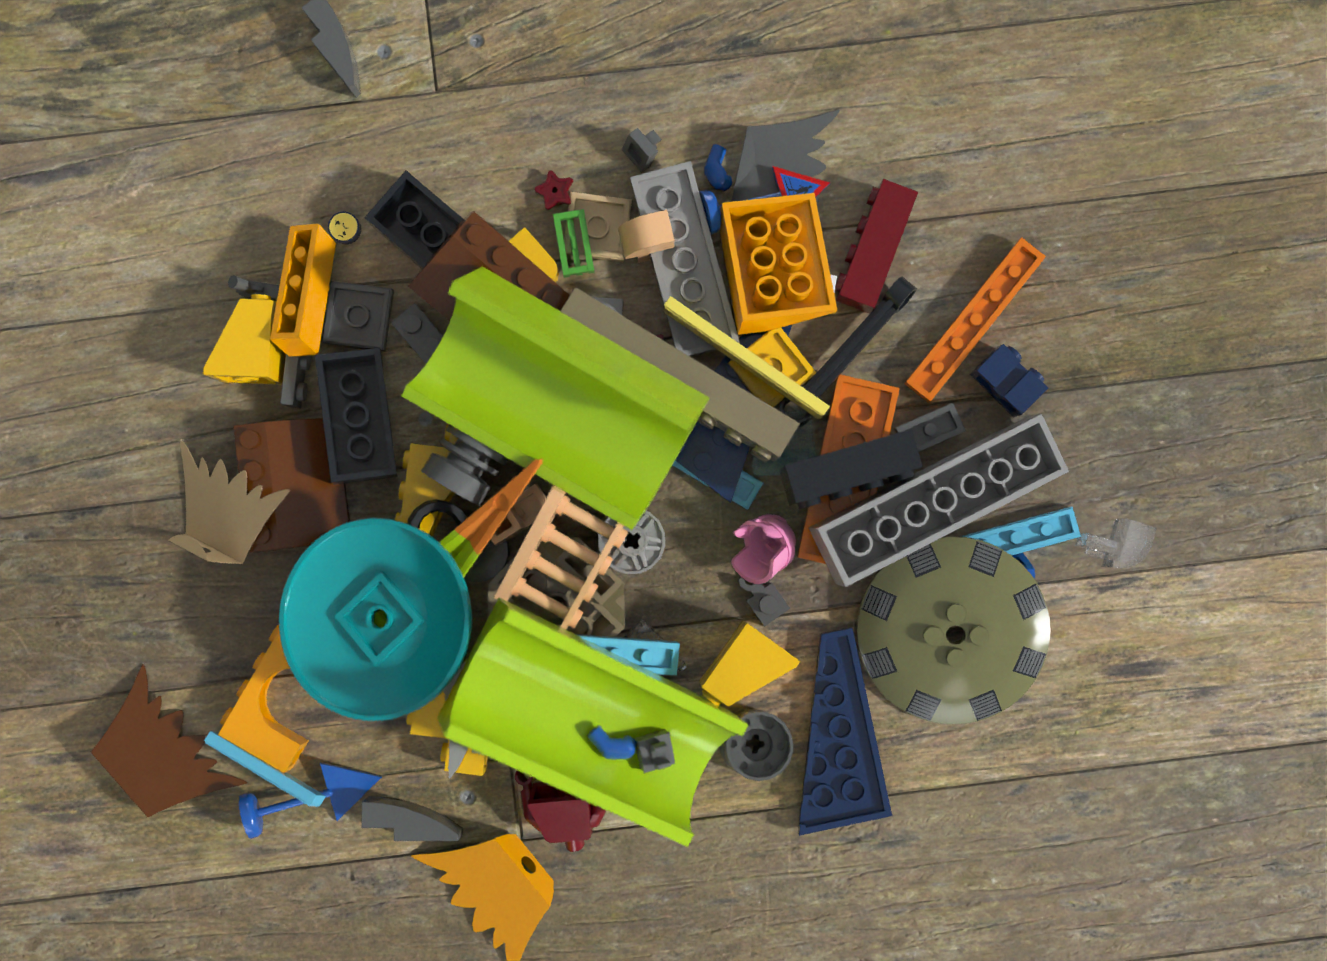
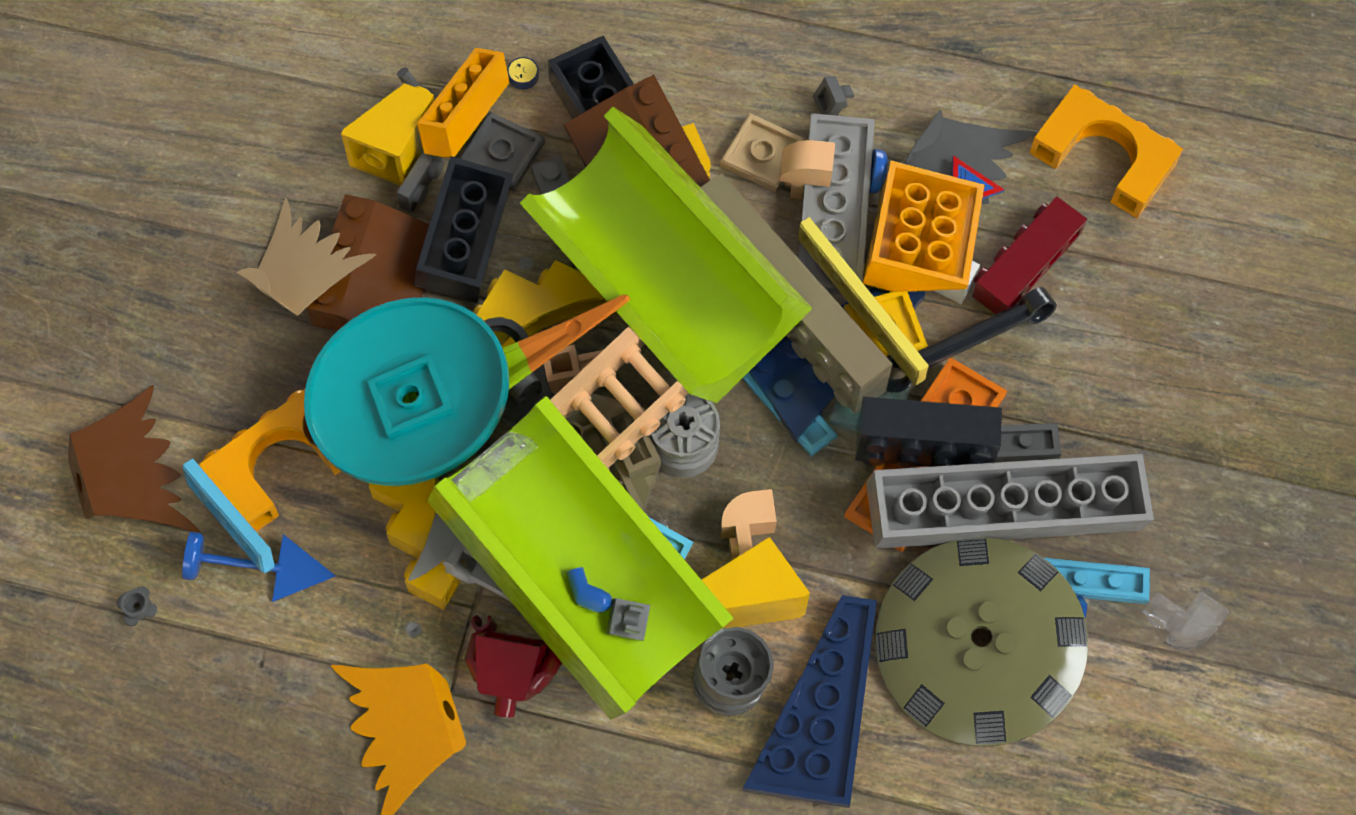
camera: 25 degrees right, 20 degrees down
(219, 880) = (136, 596): none -> dark grey plate
(409, 820) = (344, 622): dark grey slope -> none
(464, 466) = (555, 291): dark grey wheel -> none
(485, 694) = (493, 464): none -> clear slope
(558, 198) = (735, 114): dark red plate -> none
(578, 269) = (739, 130): bright green tile -> none
(711, 594) = (746, 516): none -> light nougat brick
(714, 170) = (895, 140): blue arm -> none
(765, 602) = (796, 546): dark grey plate -> none
(767, 548) = (819, 487): bright pink helmet -> none
(951, 98) = (1085, 116): none -> light orange arch
(974, 320) = (1105, 358): orange plate -> none
(1009, 381) = (1120, 422): dark blue brick -> none

